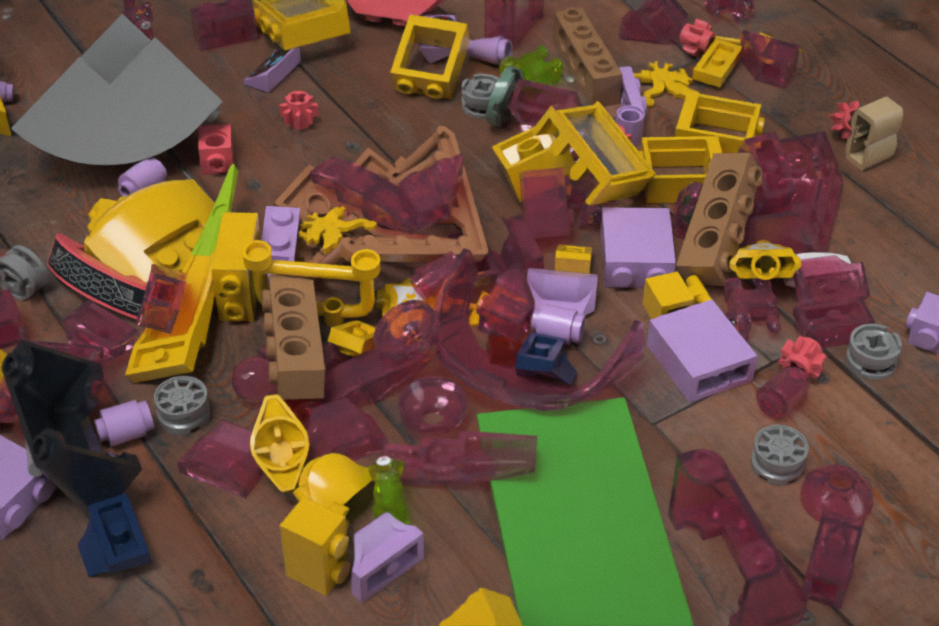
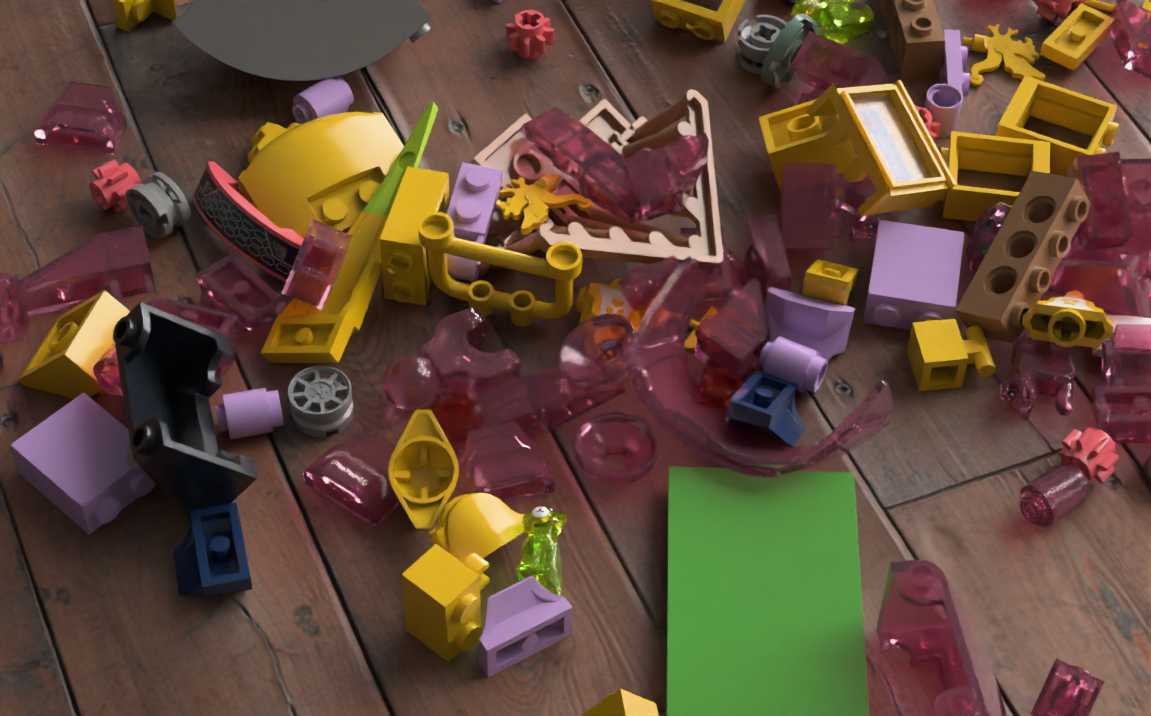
camera: 10 degrees right, 5 degrees up
(216, 148) = (418, 73): coral brick -> none
(295, 337) = (465, 339): medium nougat brick -> none
(353, 337) = (536, 346): yellow plate -> none
(466, 459) = (640, 522): clear pink slope -> none
(701, 350) = (963, 425): lavender brick -> none
(779, 455) = (1030, 575): light grey wheel -> none
(820, 494) = (1098, 653): clear pink piece -> none

